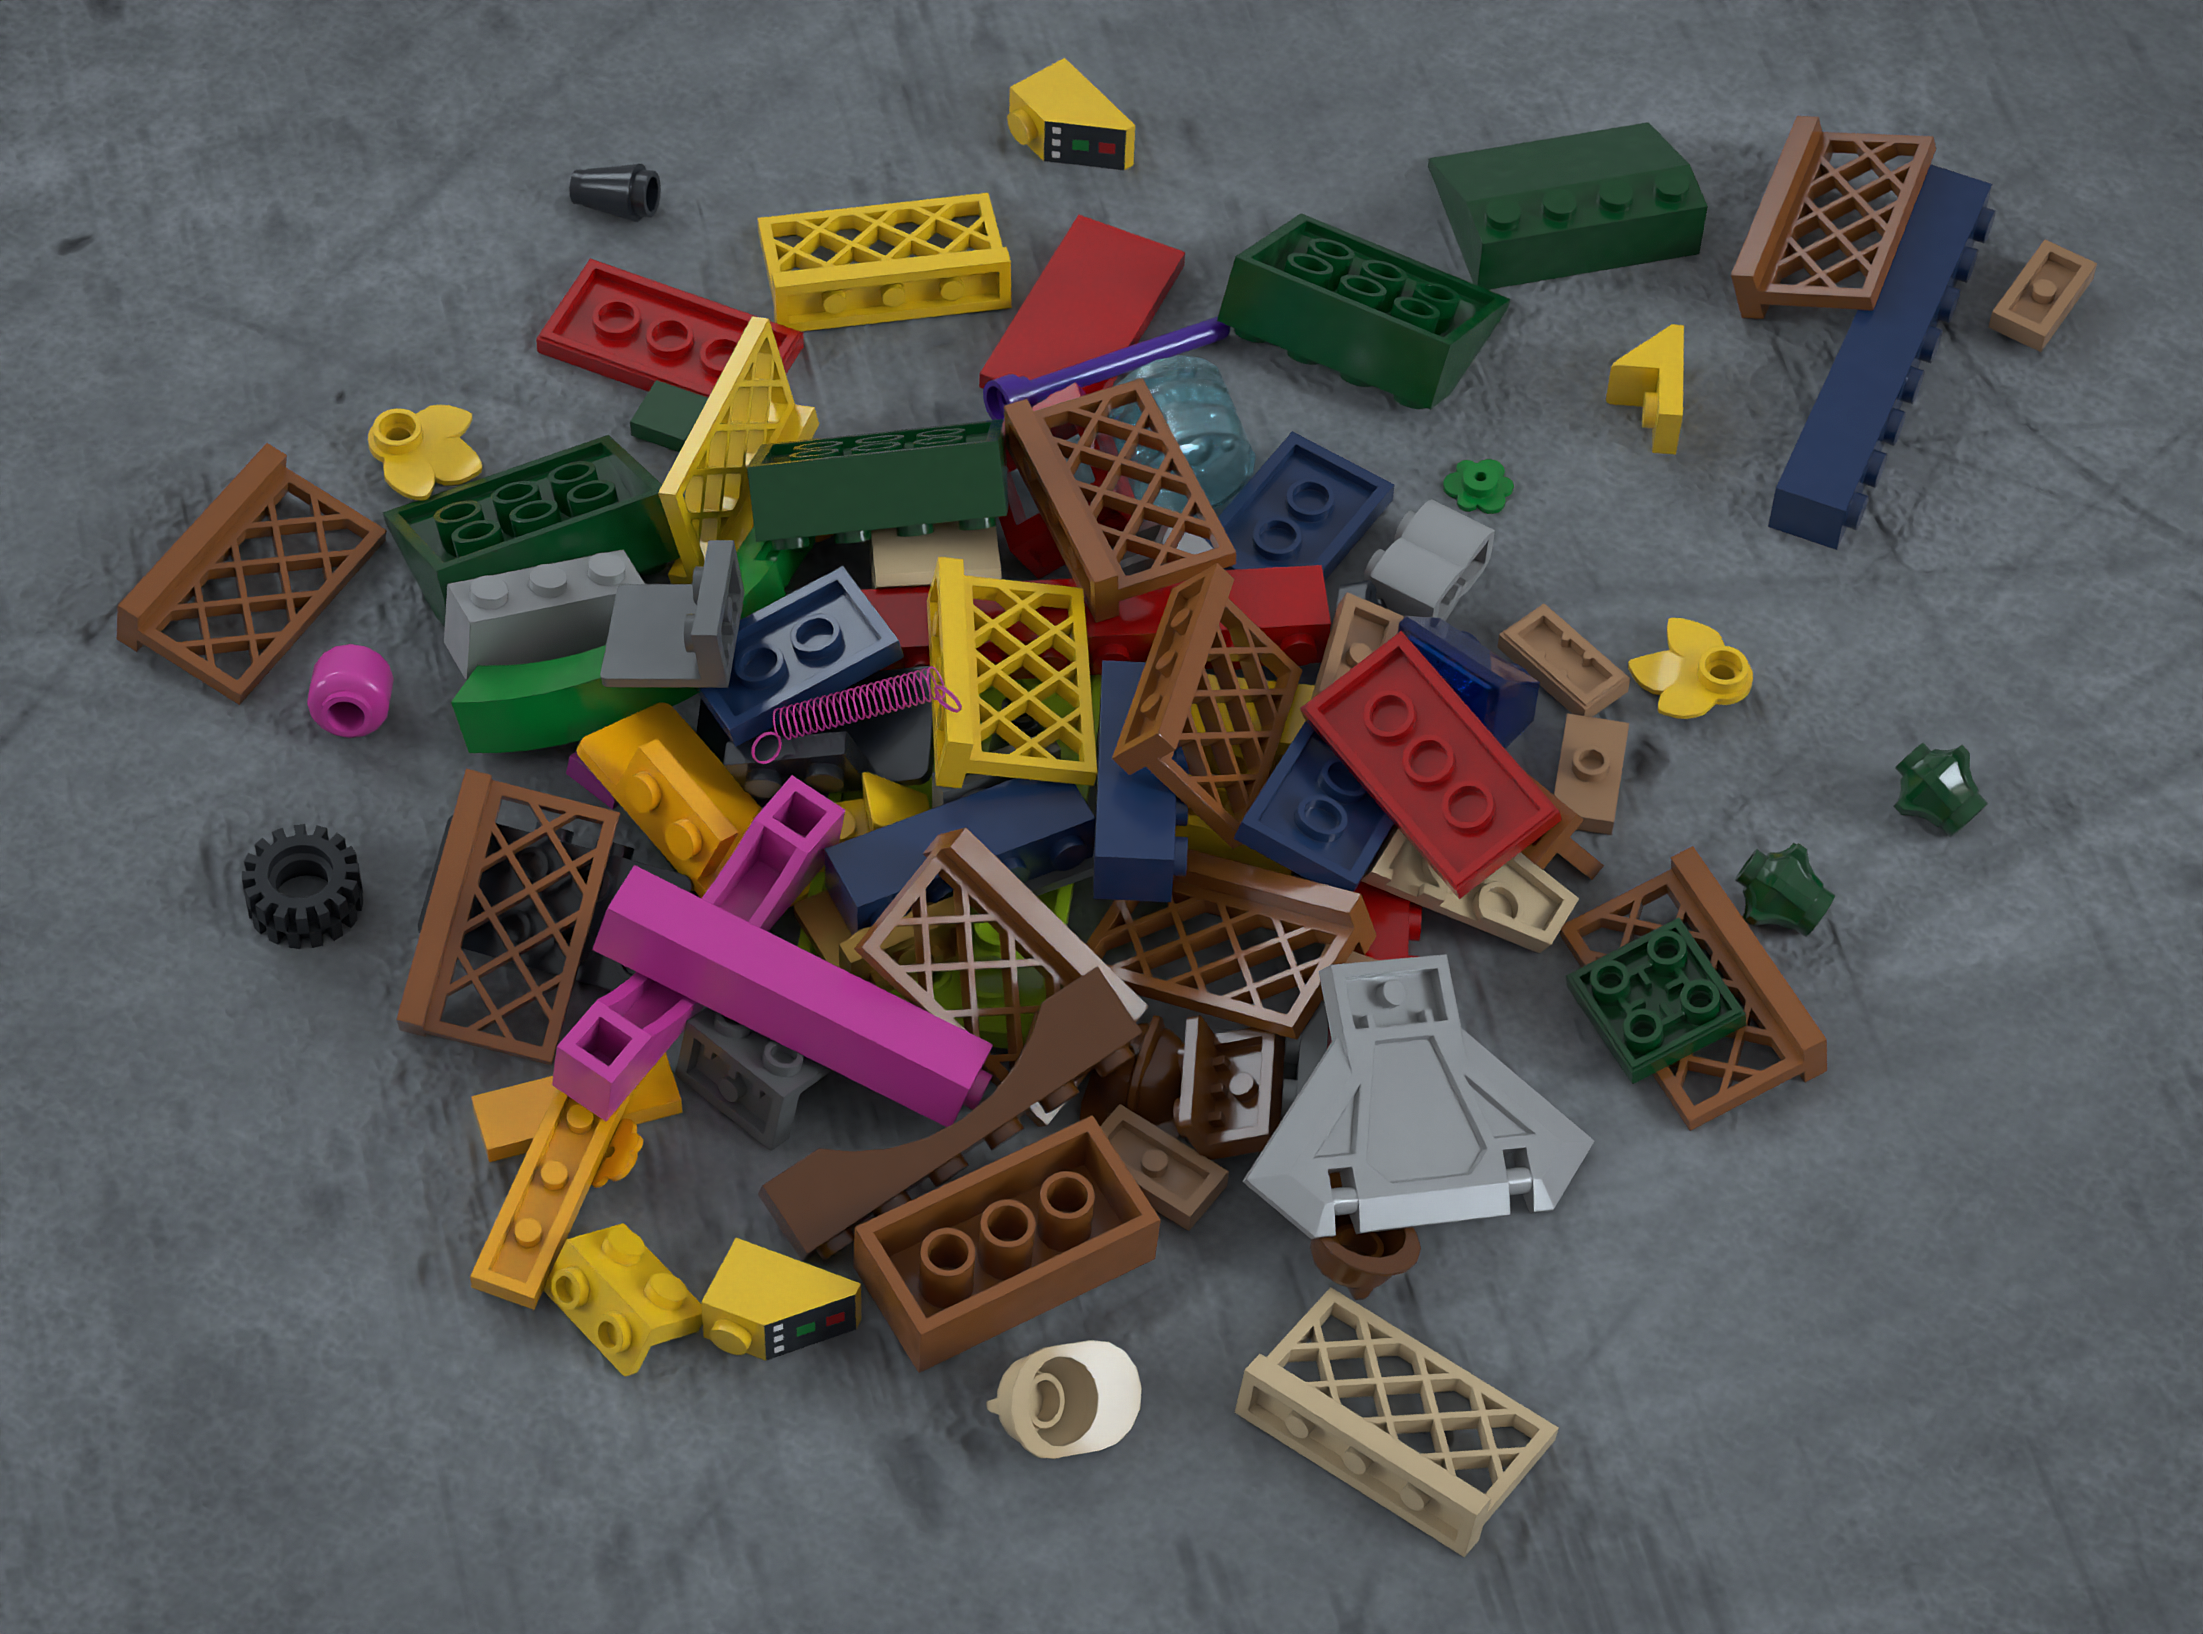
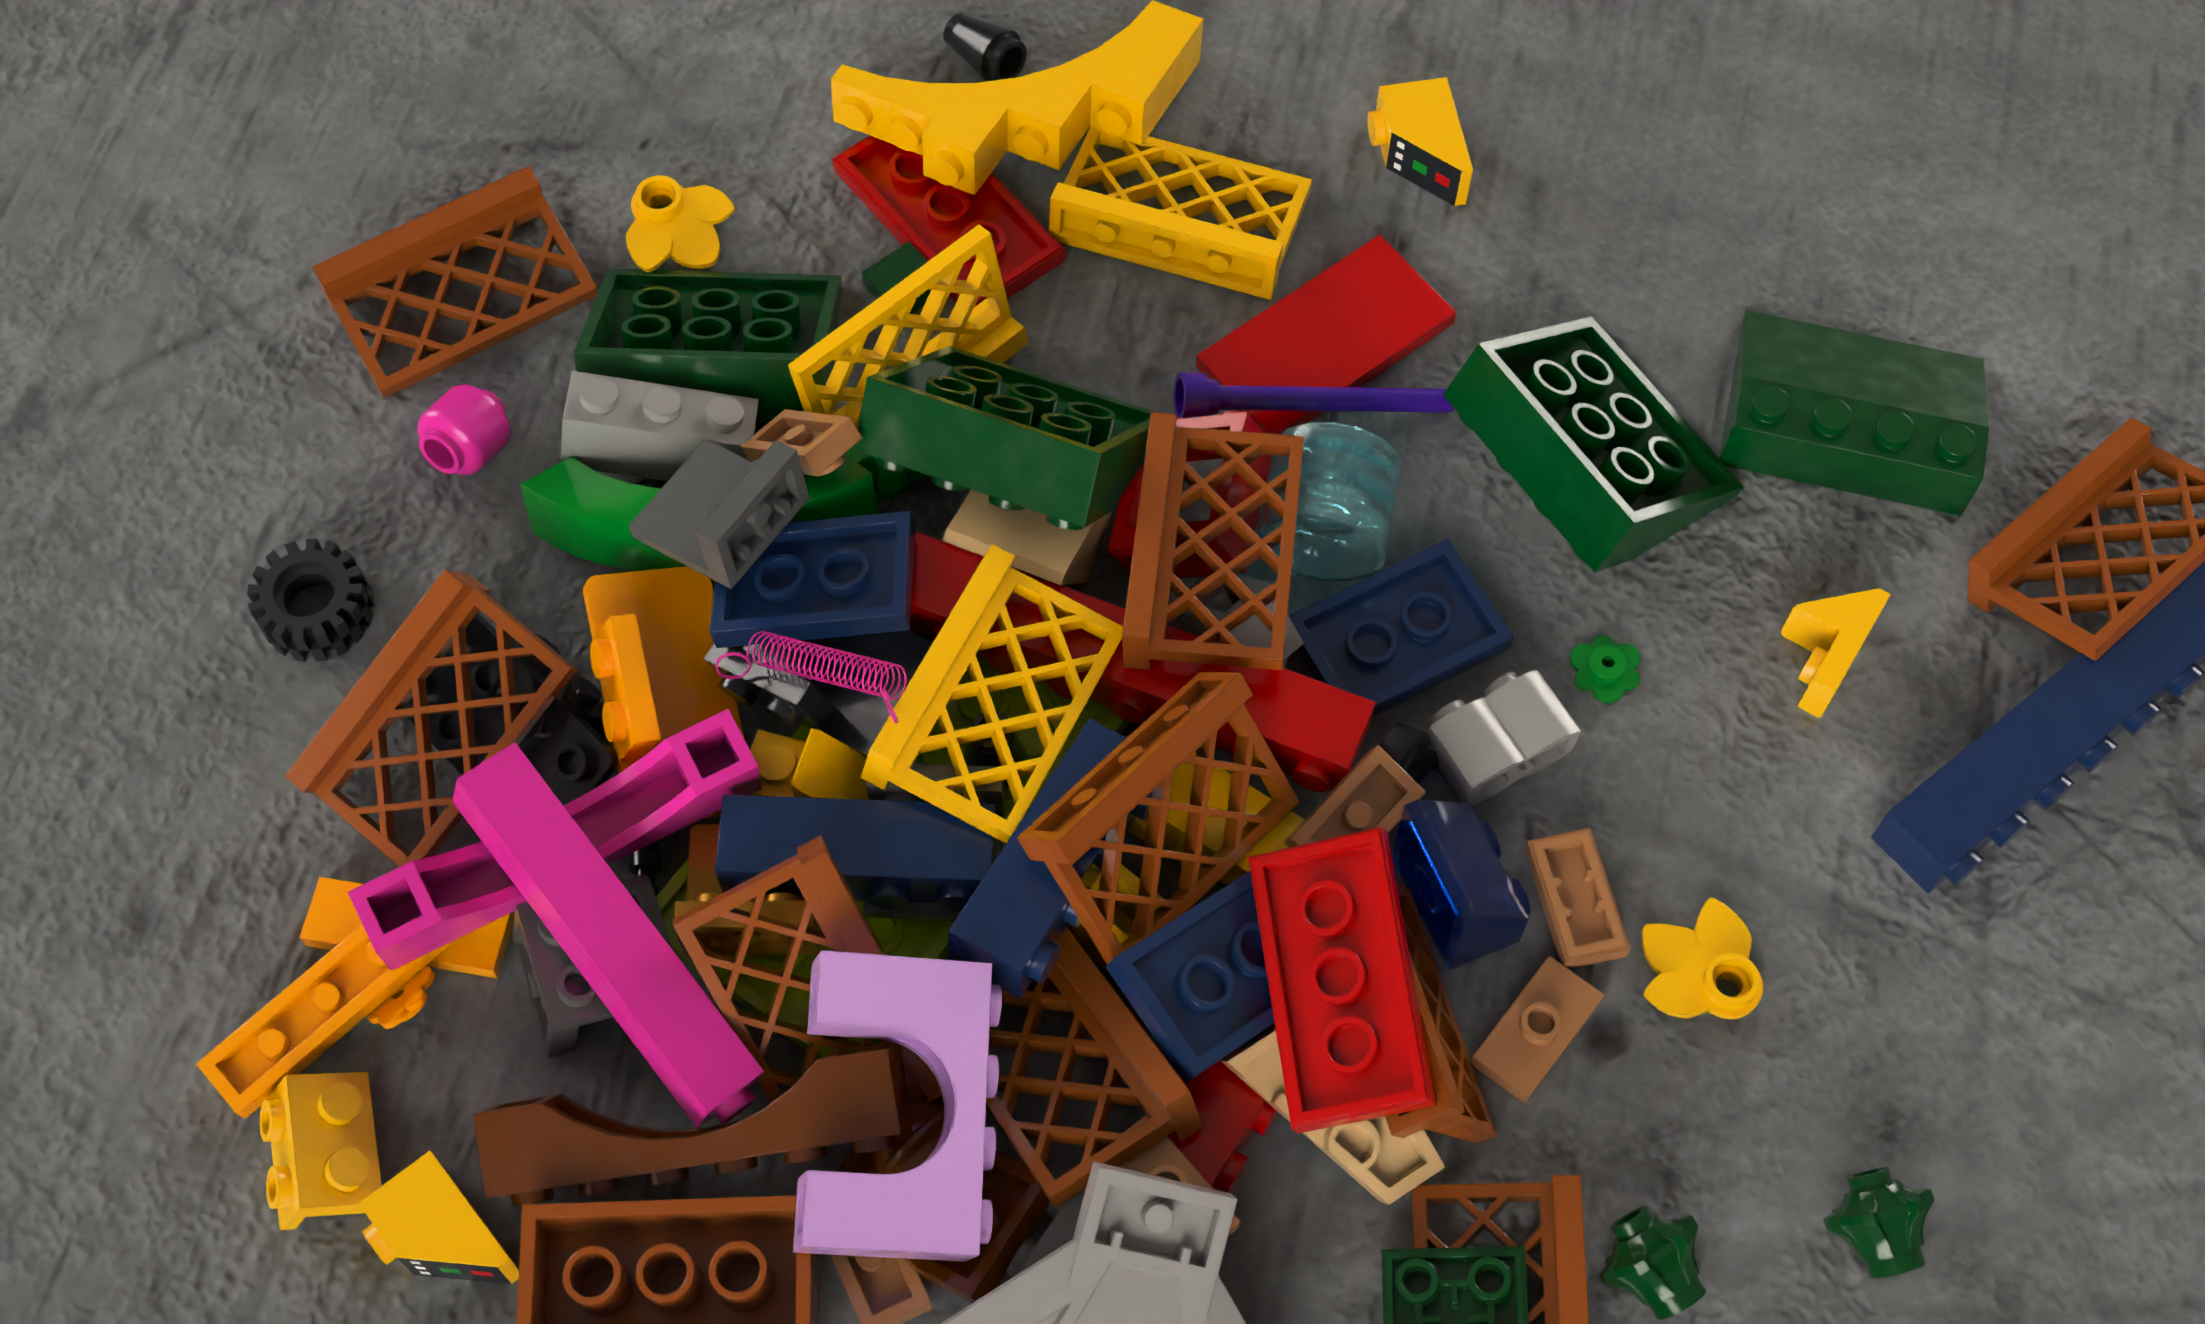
camera: 30 degrees right, 10 degrees up
(677, 558) = (816, 437): none -> medium nougat plate
(709, 228) = (1040, 115): none -> yellow arch
(1131, 928) = (945, 1019): none -> lavender arch

